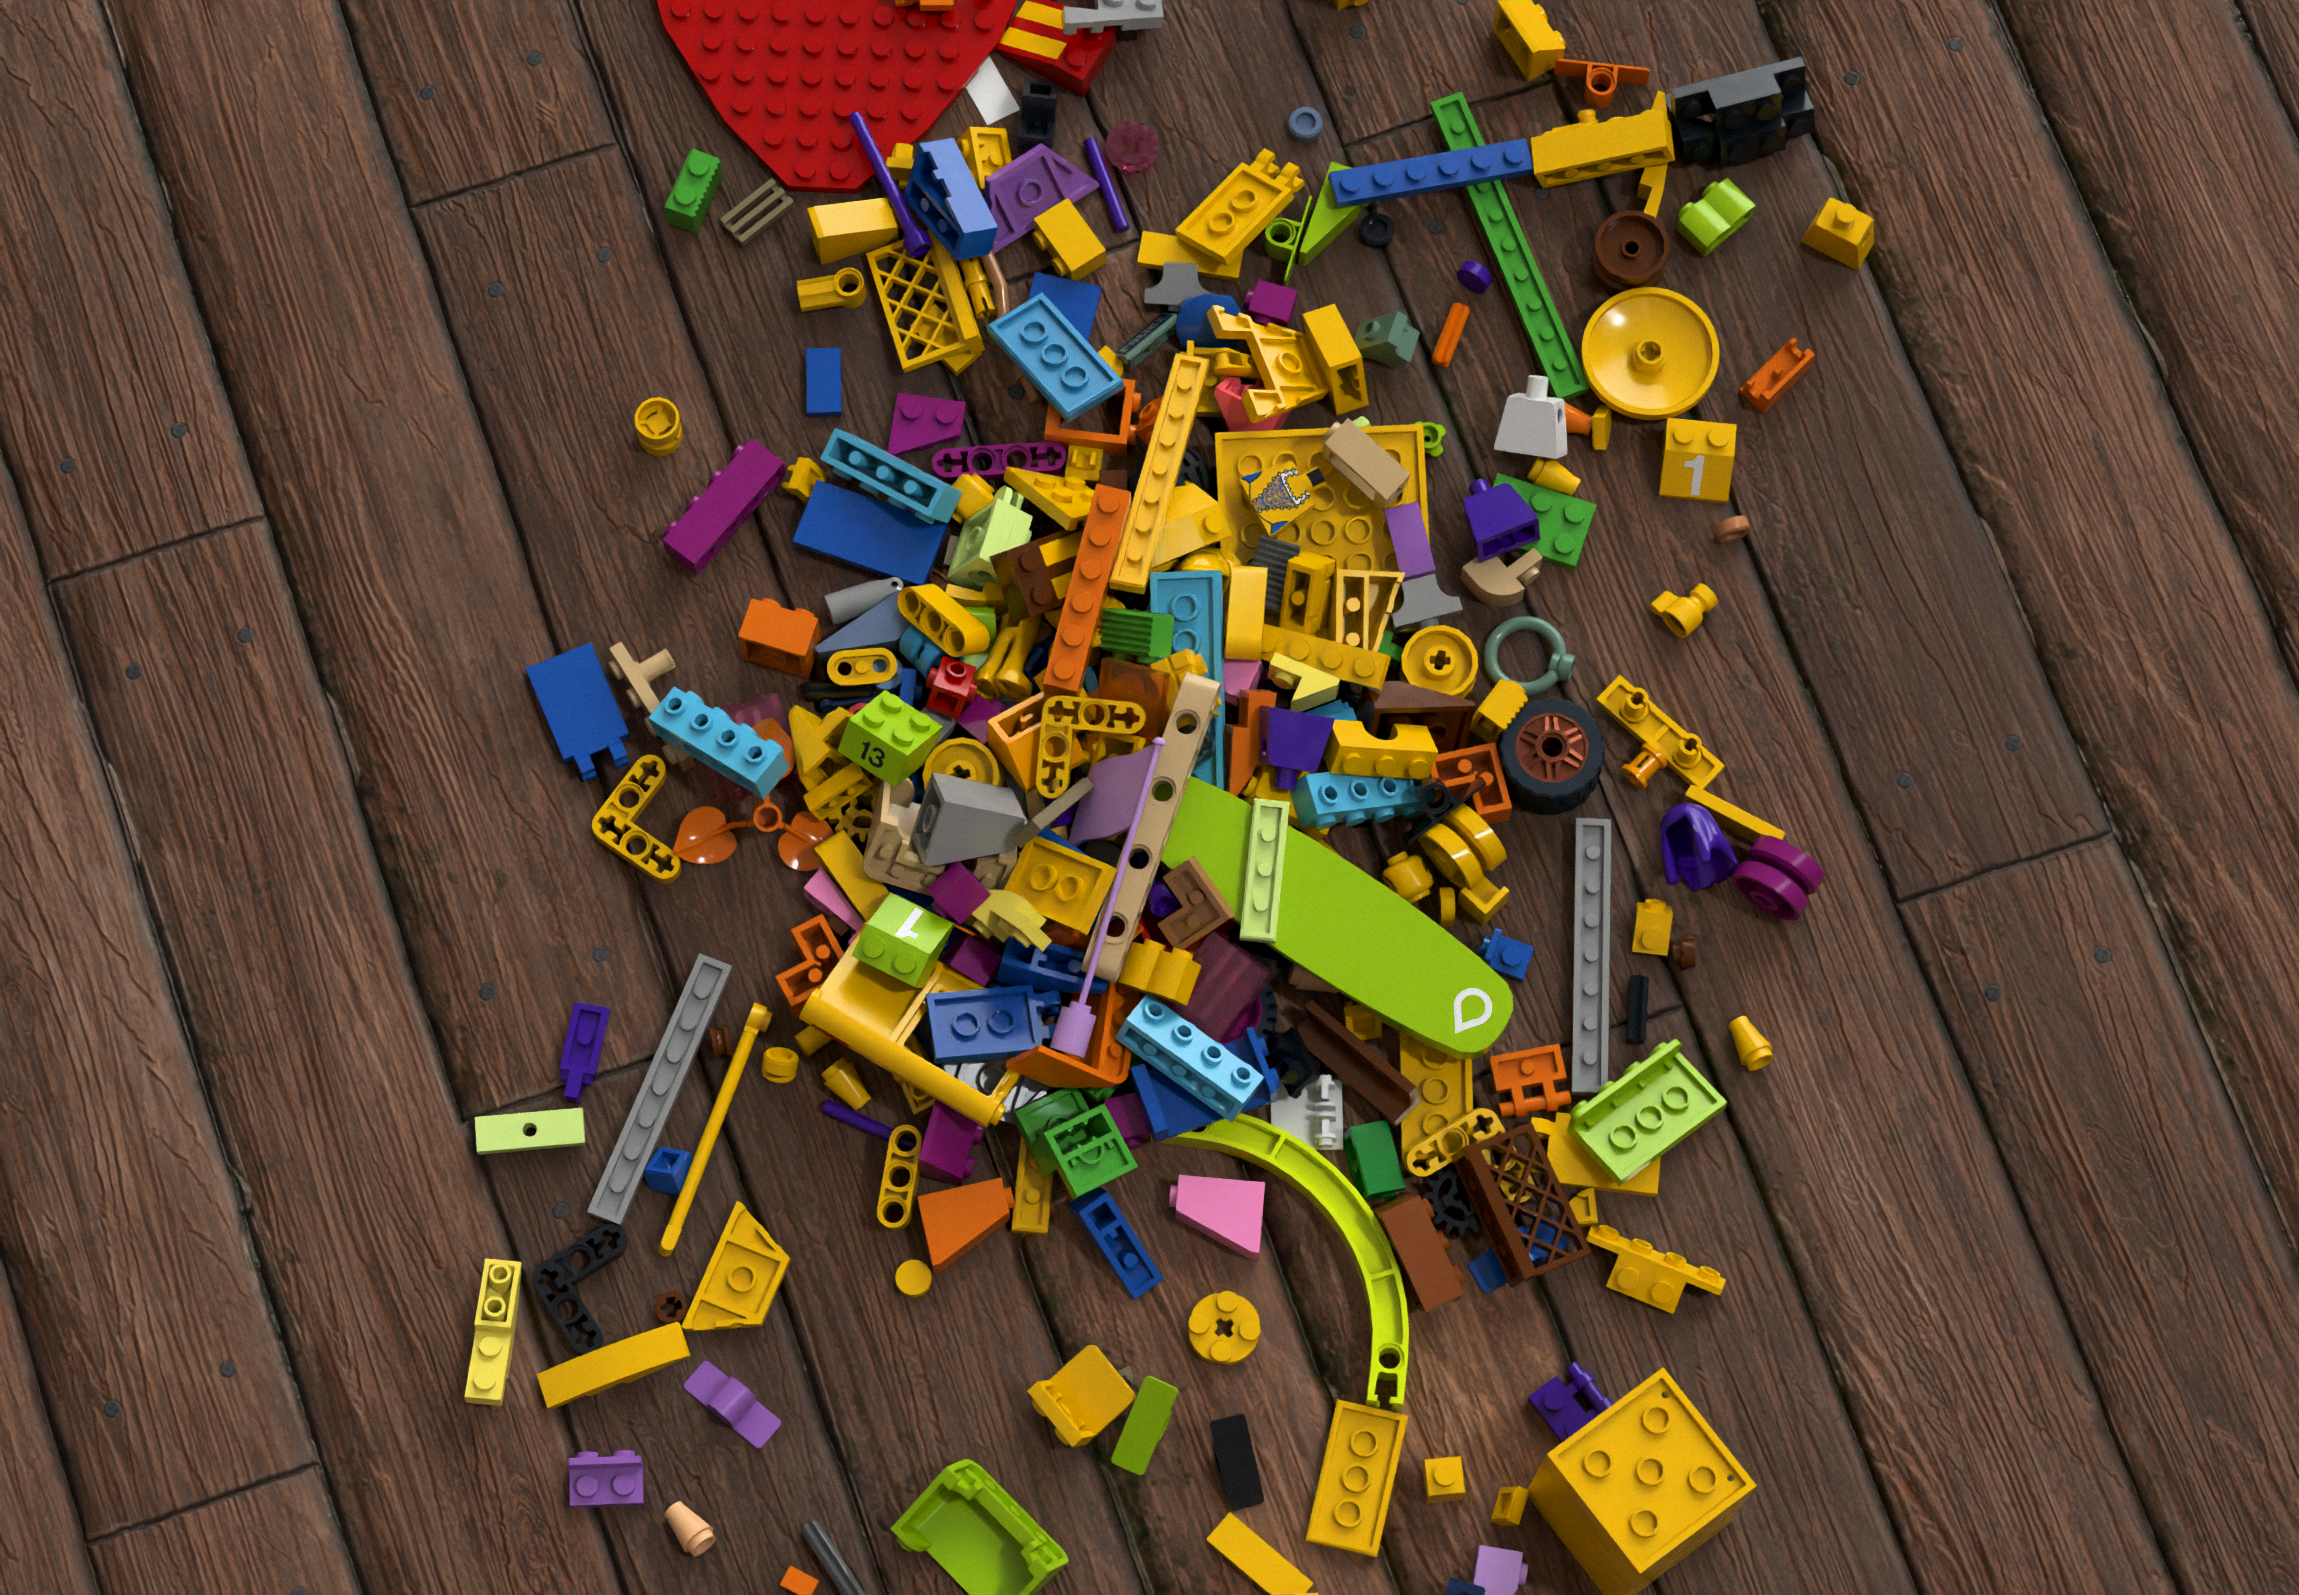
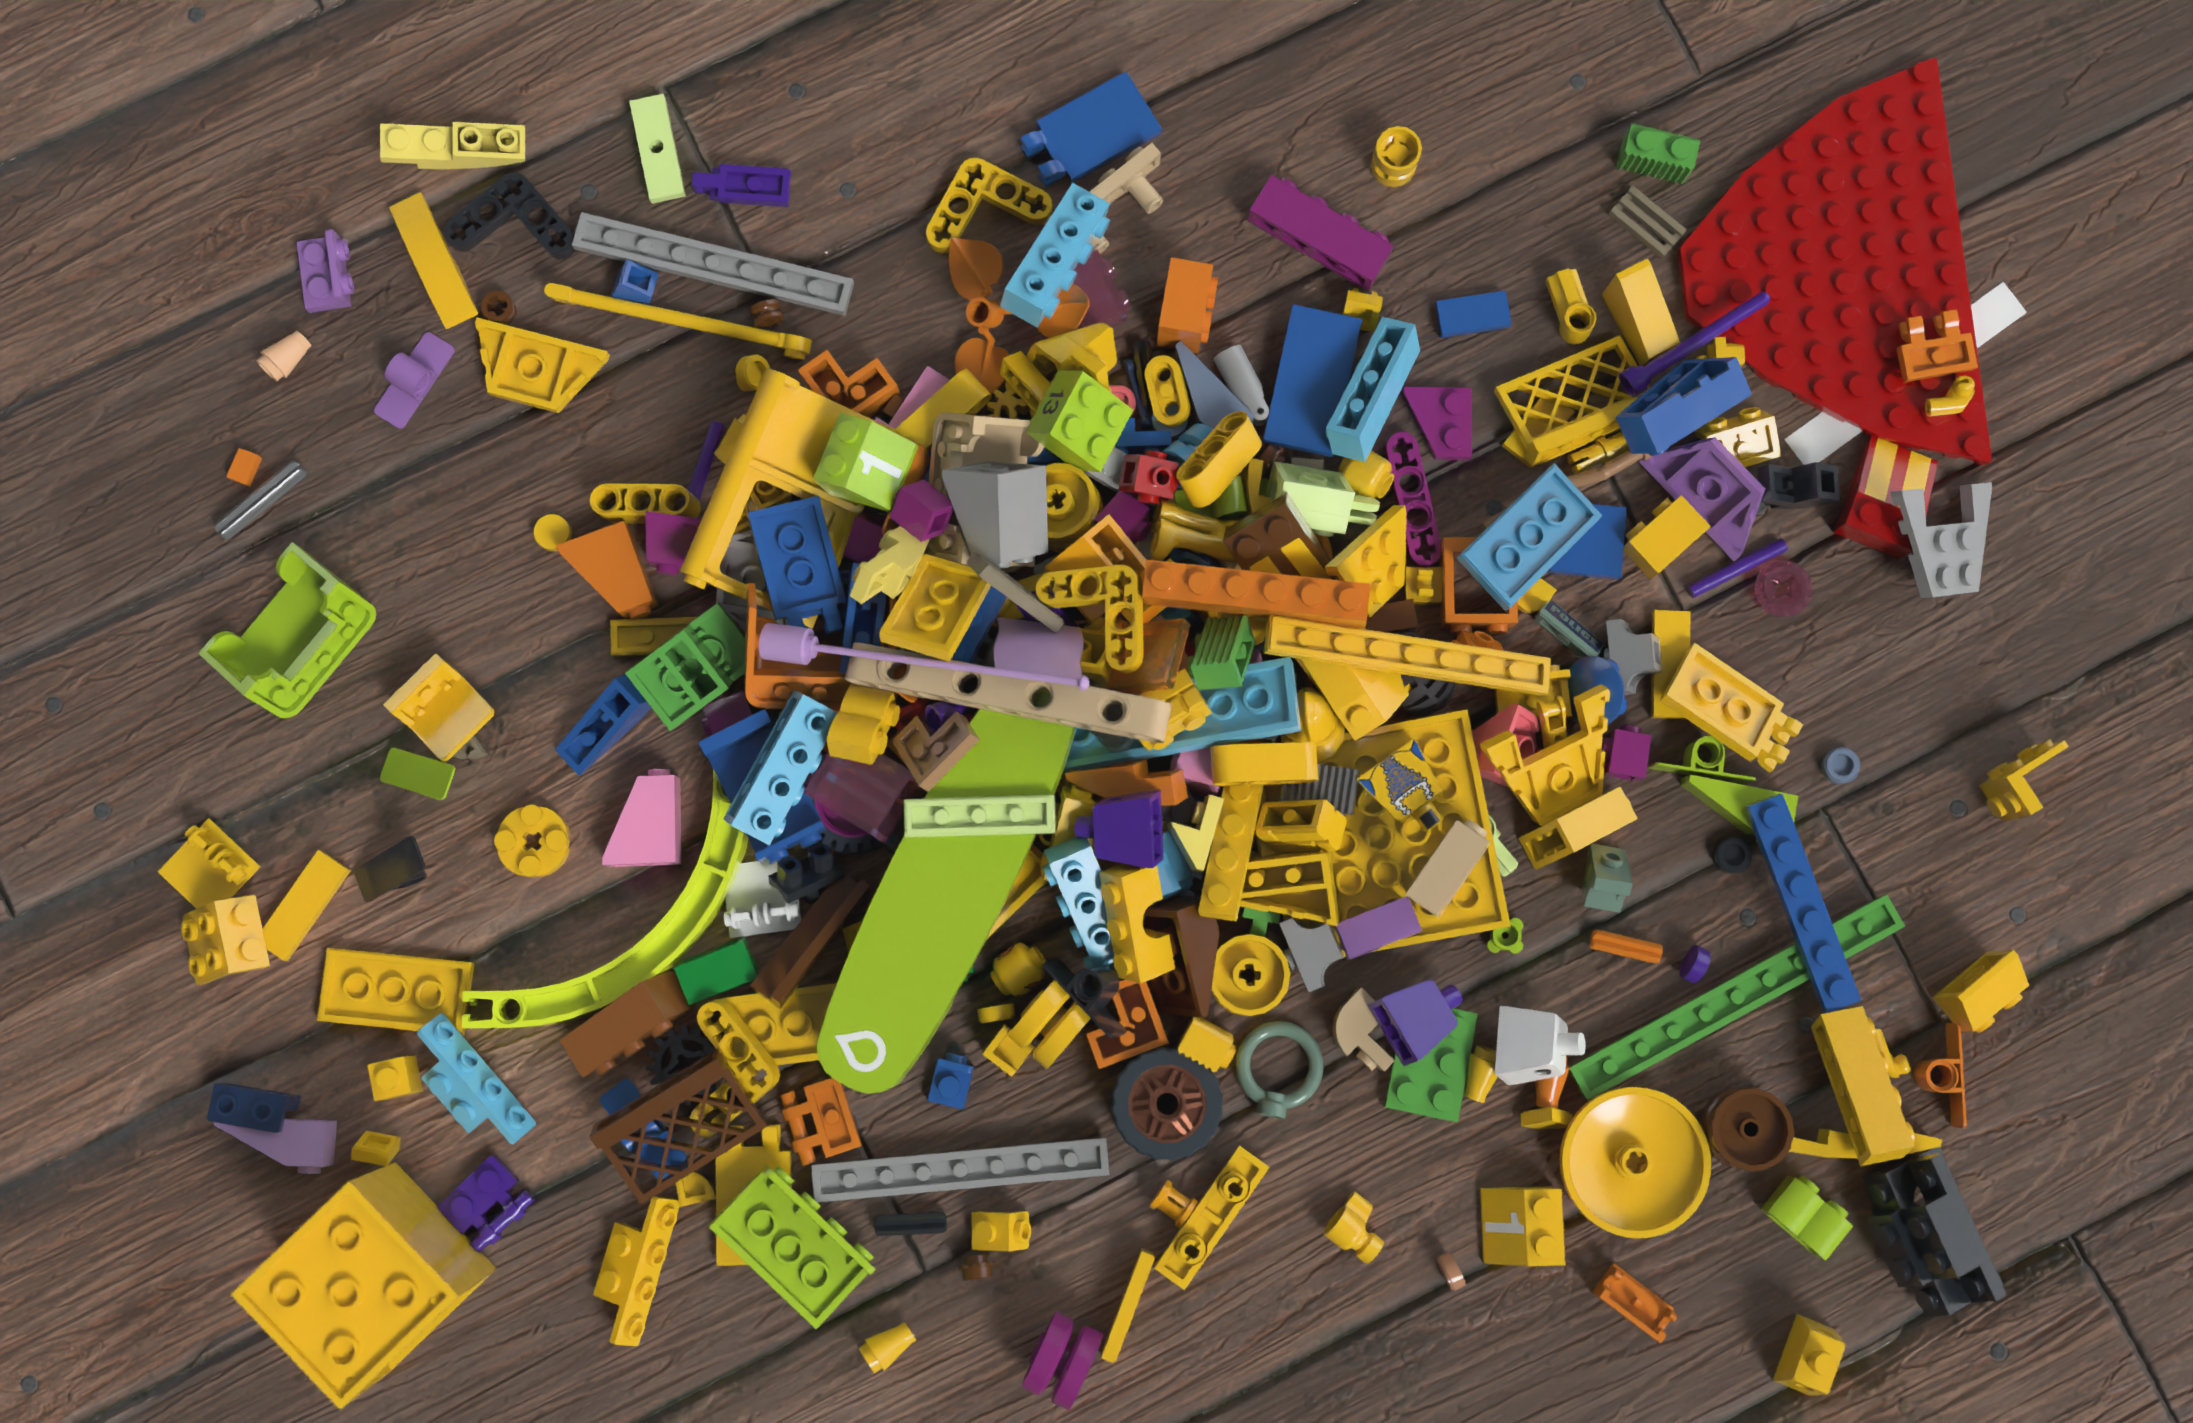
camera: 85 degrees right, 10 degrees up
(1460, 1410) = (469, 1085): none -> medium azure bracket
(1694, 847) = (1088, 1265): dark purple hair -> none

